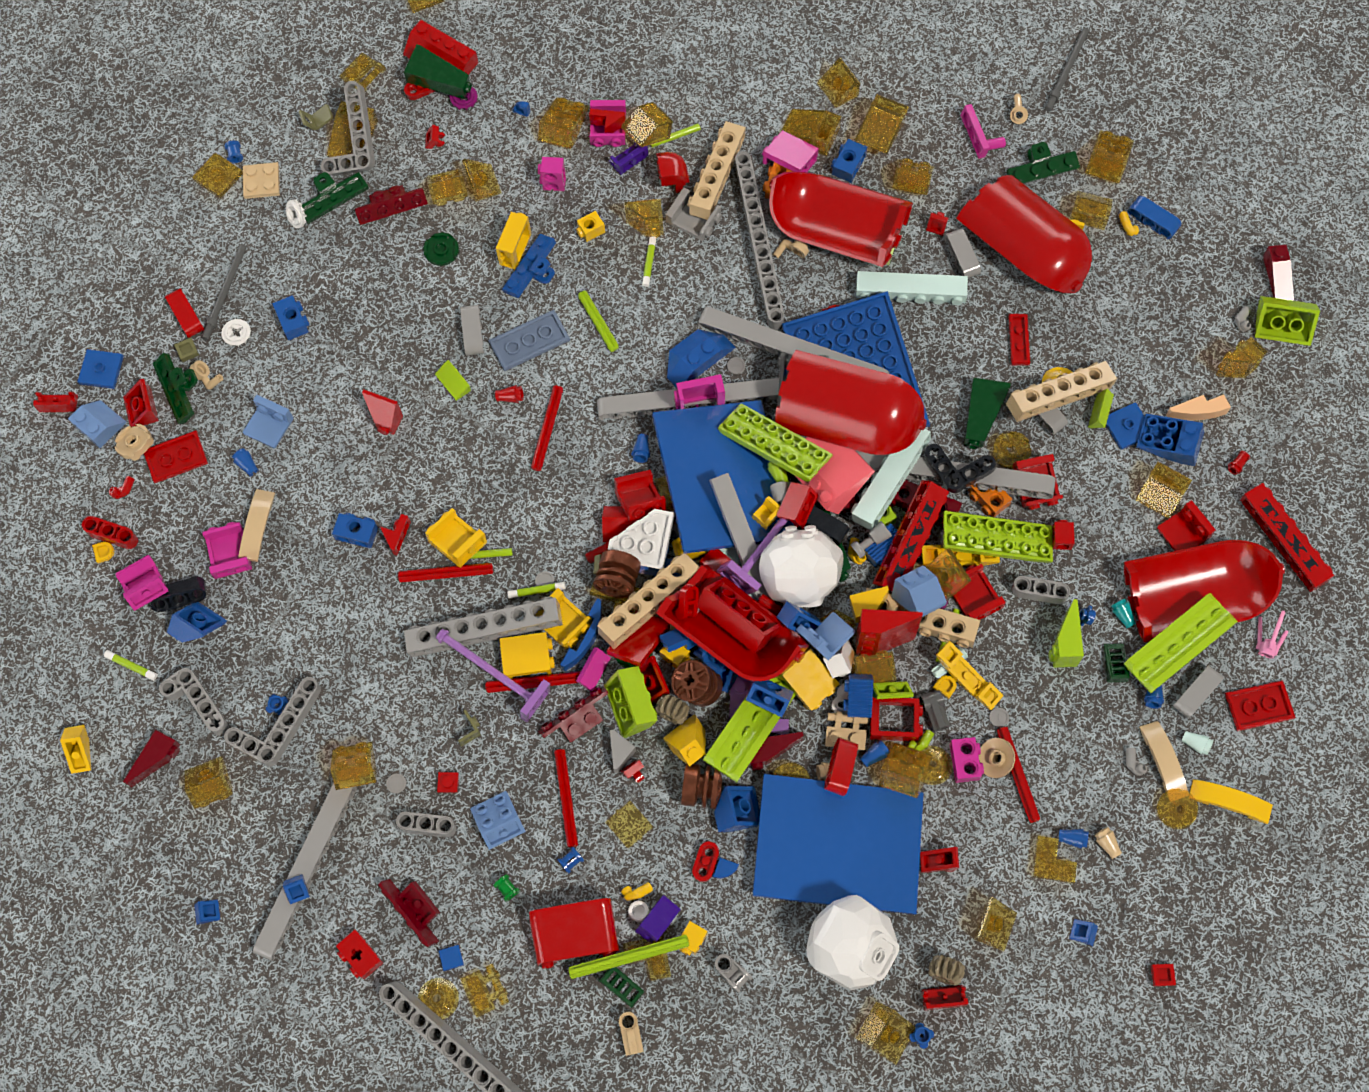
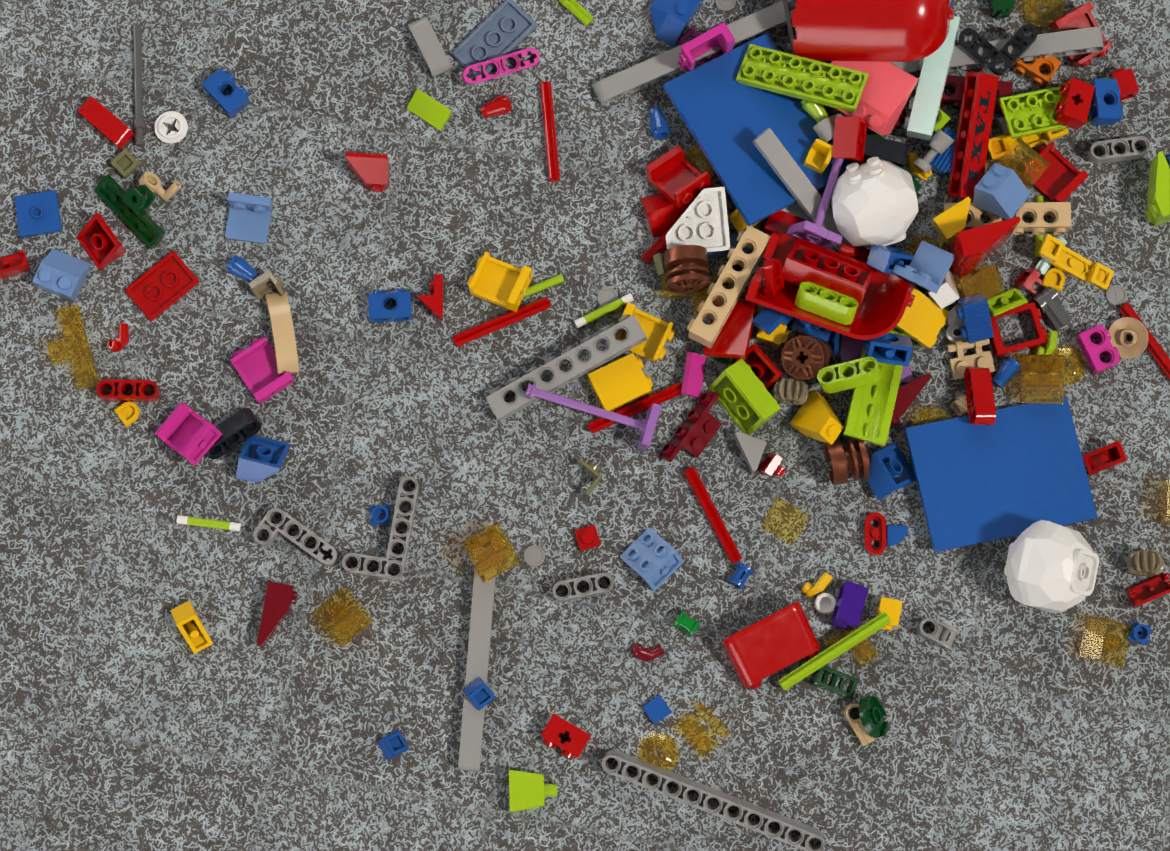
camera: 25 degrees left, 10 degrees up
(82, 484) = (74, 348): none -> clear yellow plate
(142, 439) = (119, 291): tan plate -> none
(259, 480) = (265, 284): none -> dark tan bracket
(307, 993) = (528, 790): none -> lime torso
(414, 907) = (603, 673): dark red bracket -> none
(460, 904) = (646, 654): none -> dark red arm
(525, 366) = (499, 63): none -> dark pink beam
(573, 657) = (669, 368): blue slope -> none
(643, 1030) = (872, 716): none -> dark green tile
(726, 708) = (859, 378): none -> lime beam
(727, 638) = (826, 303): none -> lime beam
(920, 678) = (1027, 279): none -> red tile
(1007, 544) = (1074, 103): none -> red brick
(1032, 550) = (1099, 111): none -> blue brick

